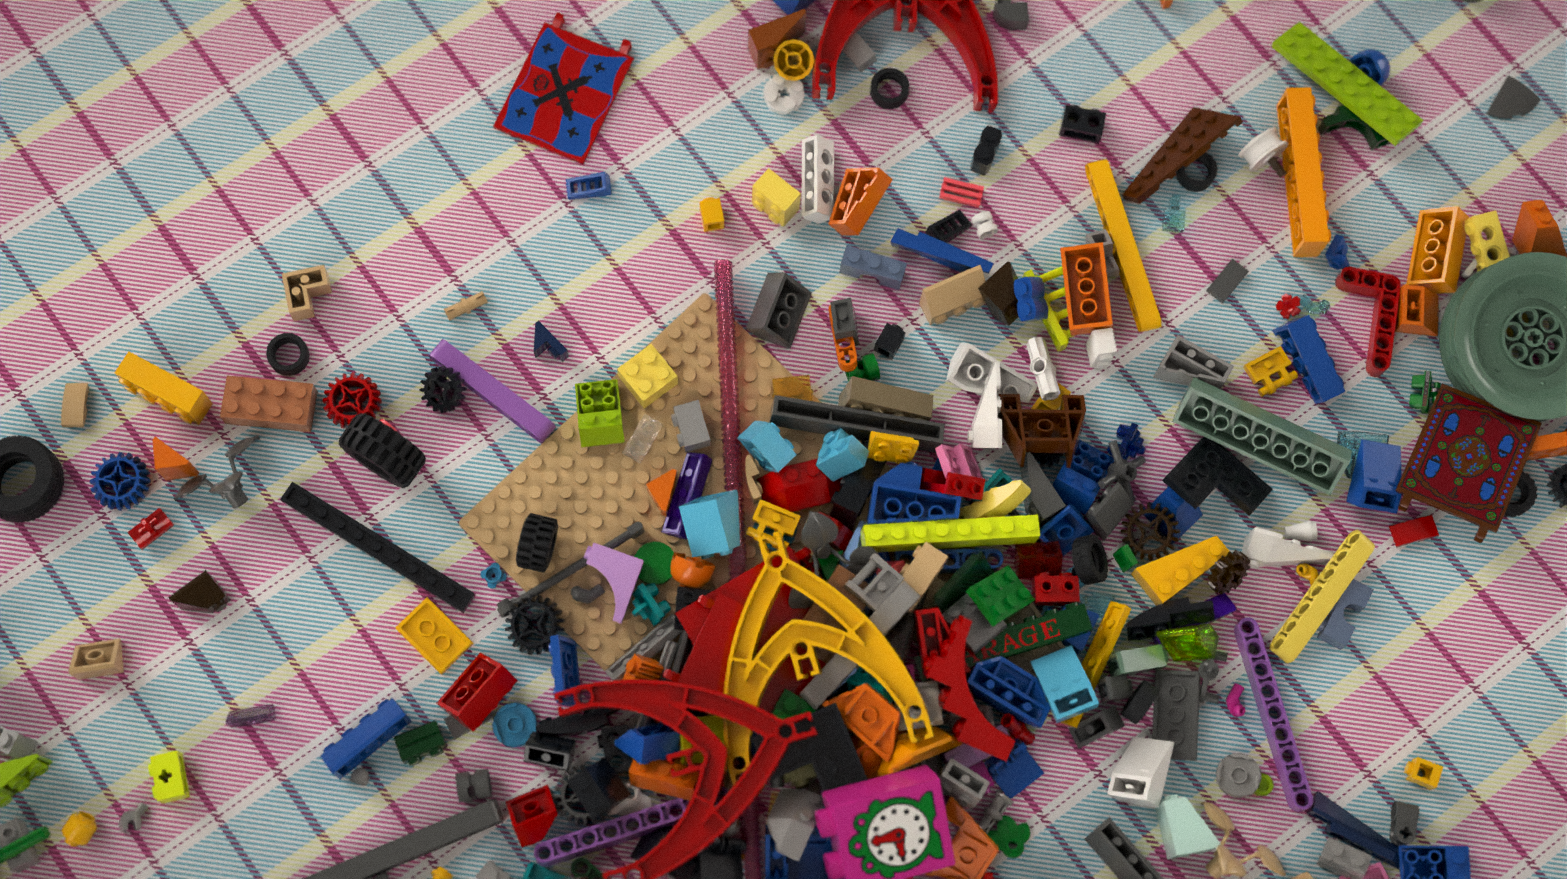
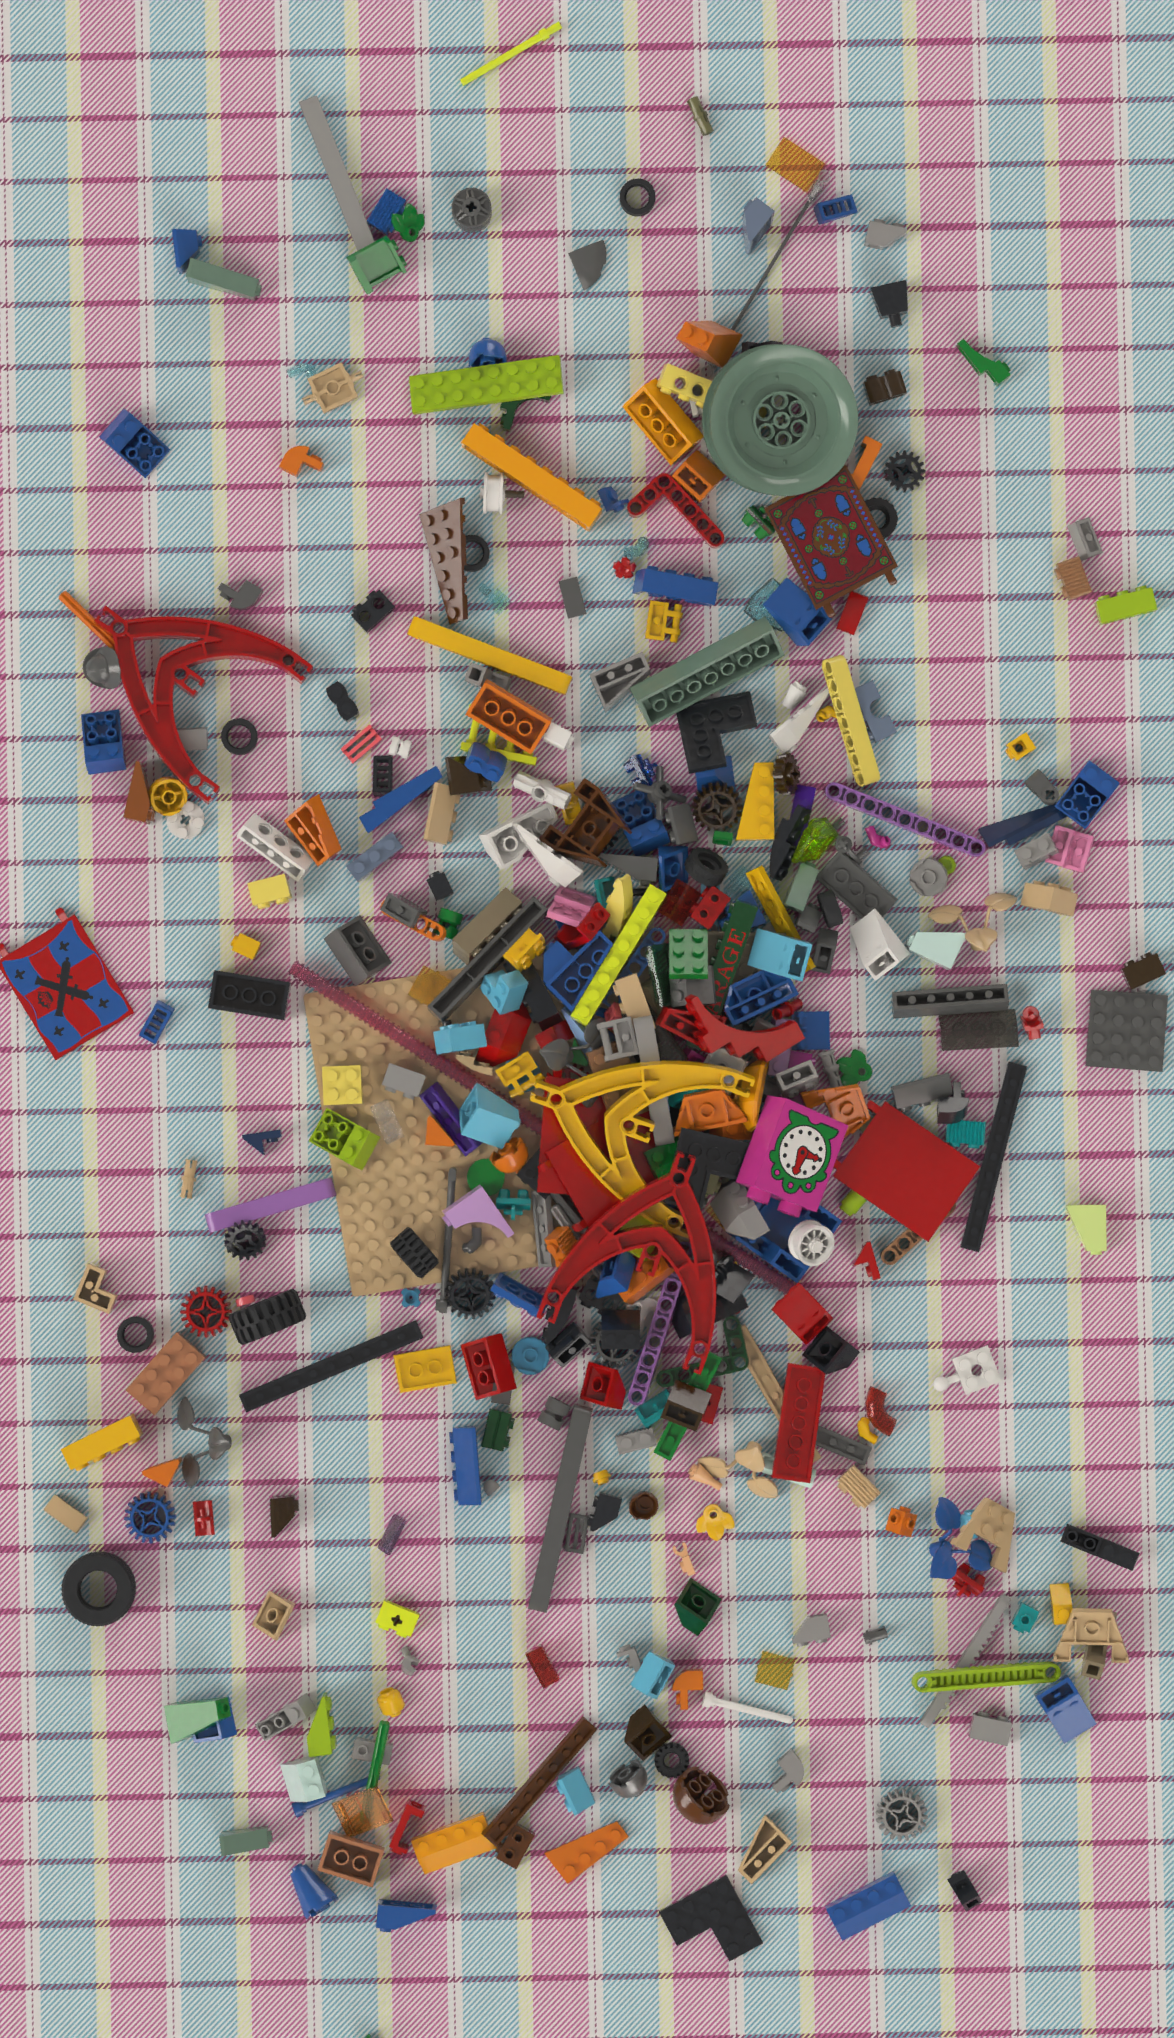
camera: 50 degrees left, 15 degrees up
(670, 244) = (249, 995): none -> black brick

